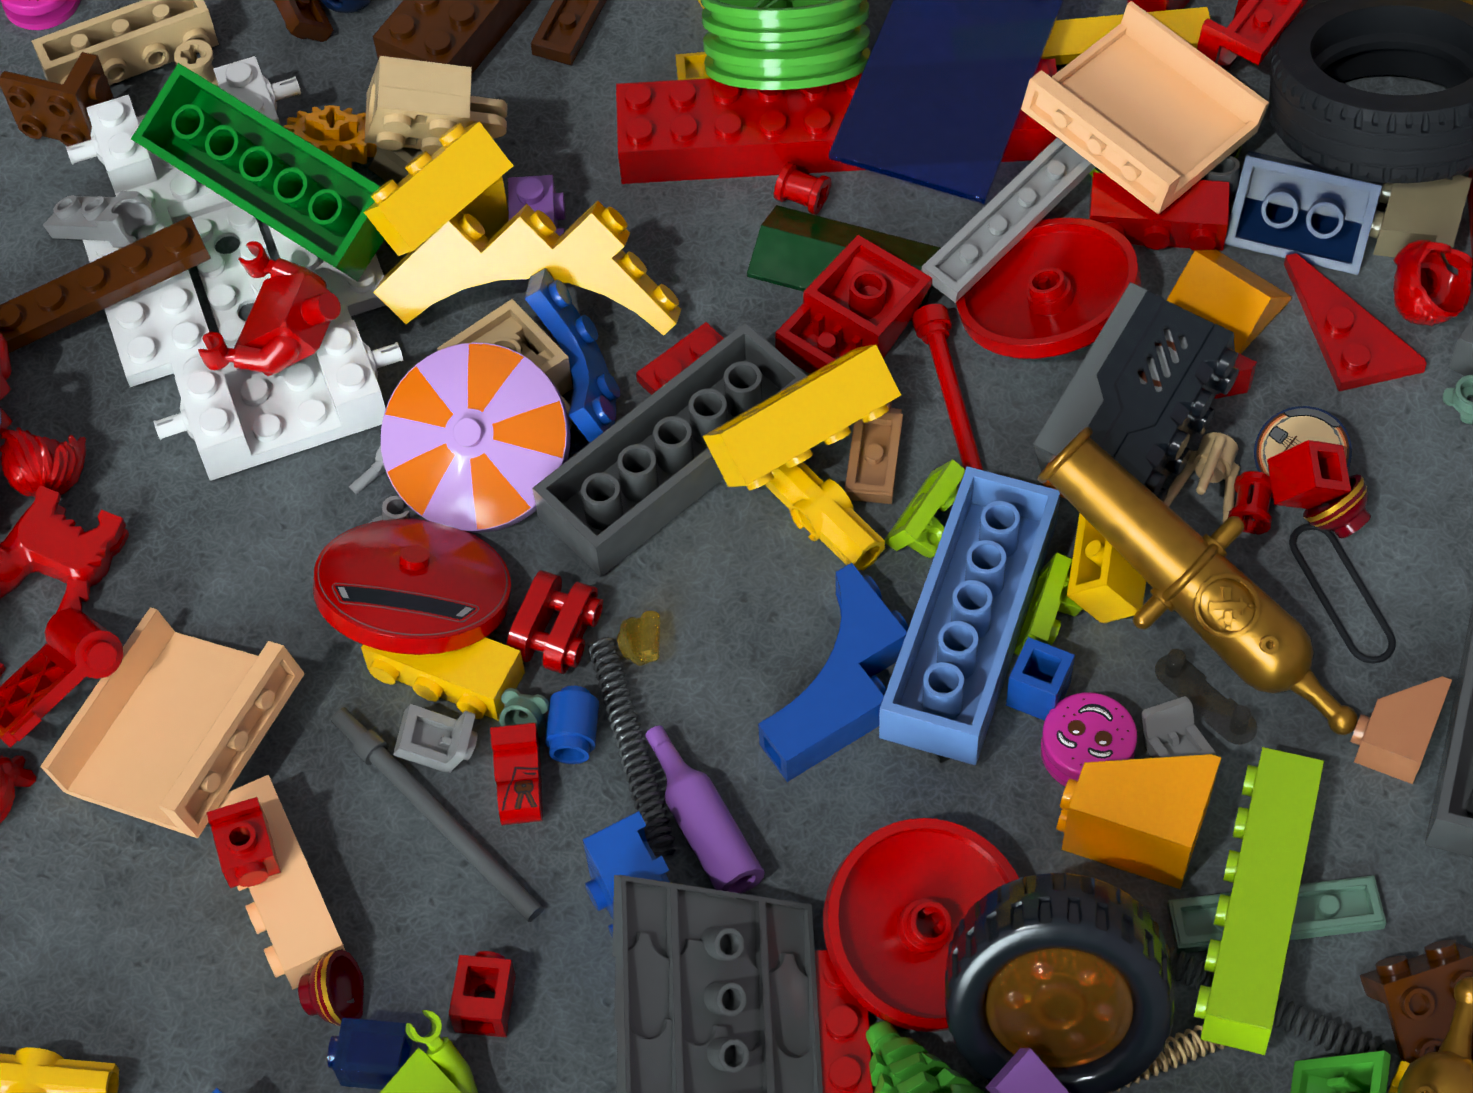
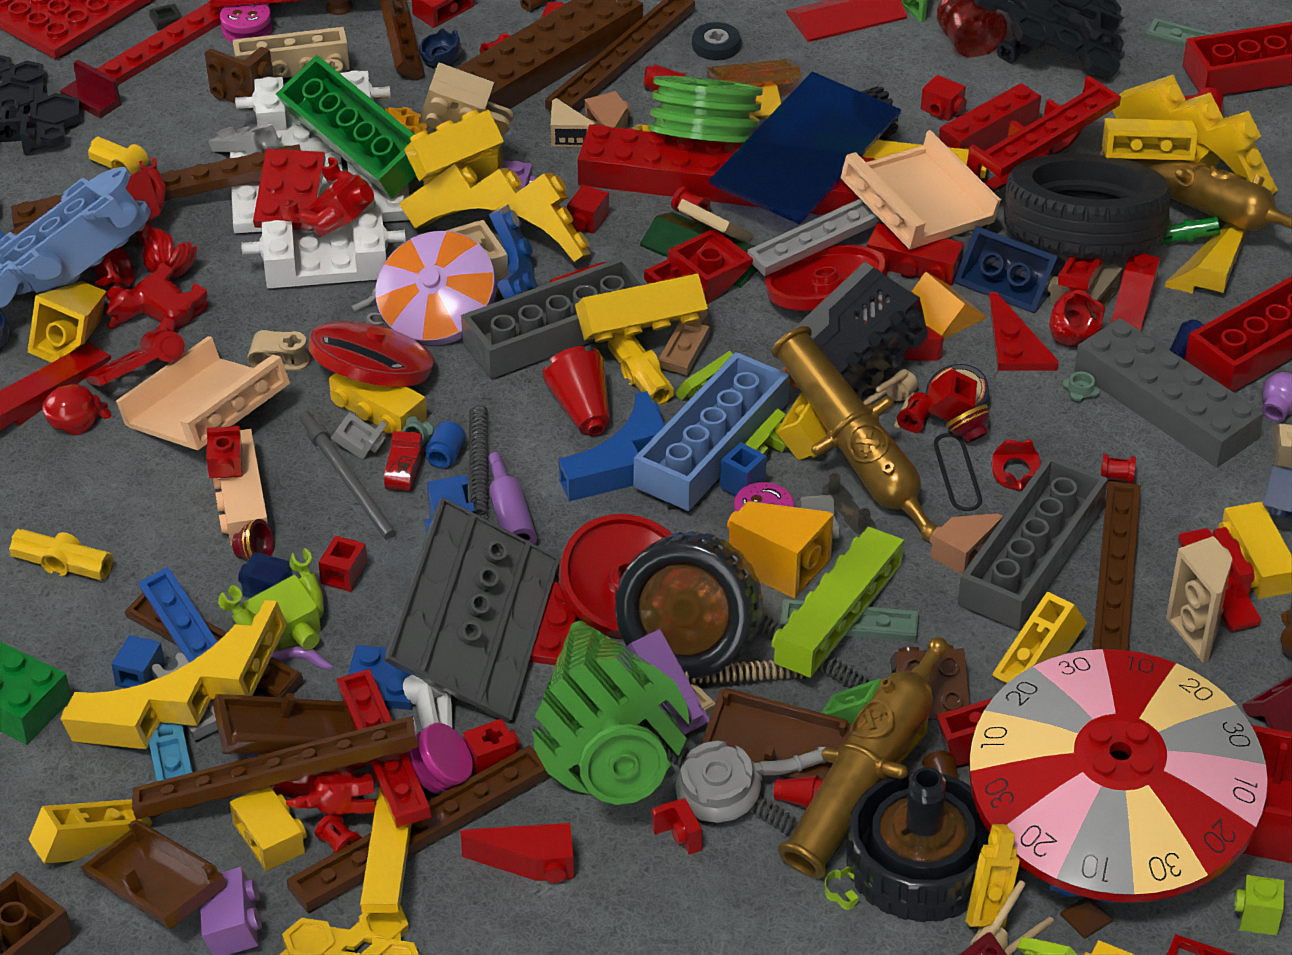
camera: 10 degrees right, 15 degrees down
(195, 291) = (286, 176): none -> red plate
(262, 602) = (280, 344): none -> tan piece
(564, 643) = (453, 391): red brick -> none
(580, 85) = (567, 125): none -> tan slope
(630, 50) = (608, 110): none -> nougat slope
(640, 638) = (502, 410): clear yellow plate -> none
(655, 231) = (588, 208): none -> red brick
(751, 581) = (580, 388): none -> red cone
(852, 219) = (715, 221): none -> tan tile
(933, 327) = (746, 289): red piece -> none
(1422, 210) = (1079, 272): none -> red plate
(1437, 544) = (1015, 450): none -> red piece

